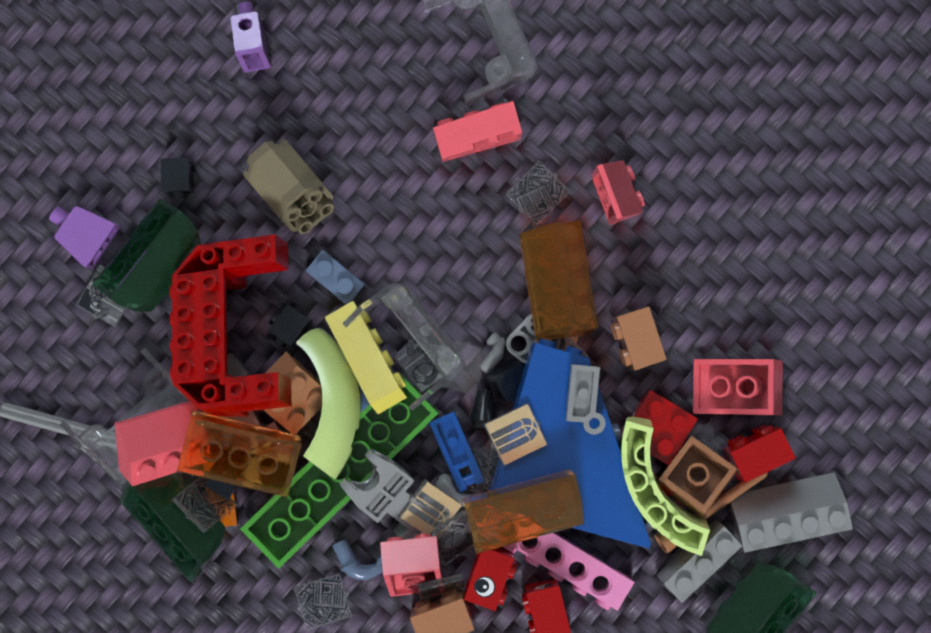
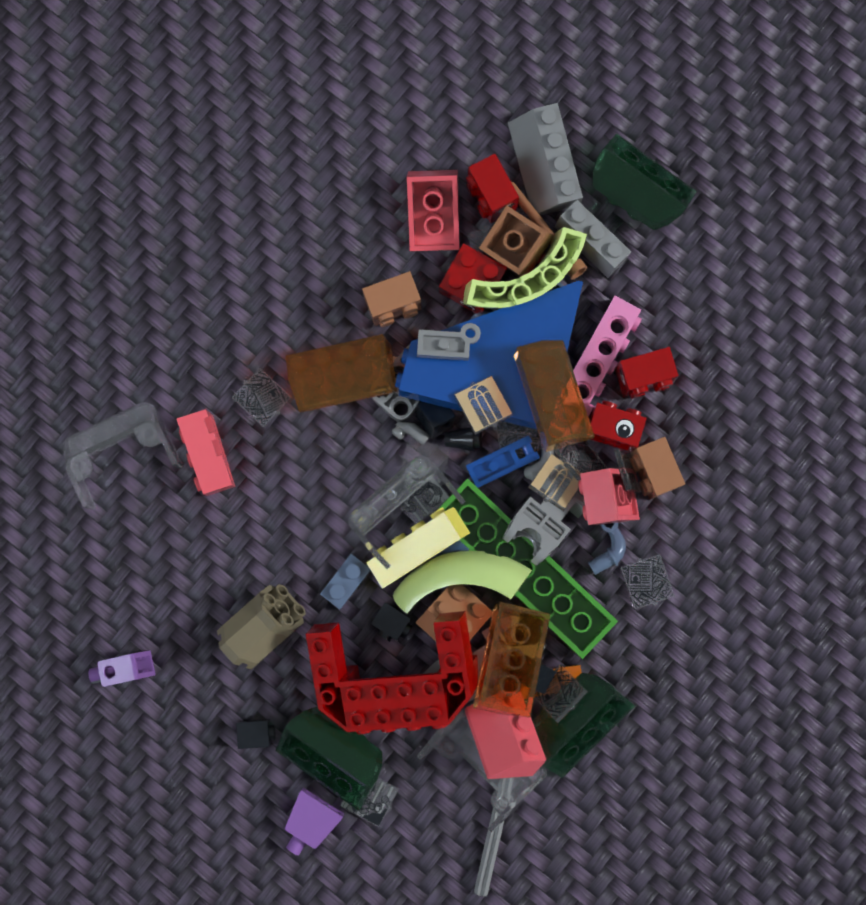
camera: 90 degrees left, 5 degrees down
(616, 191) = (258, 324): coral slope -> none

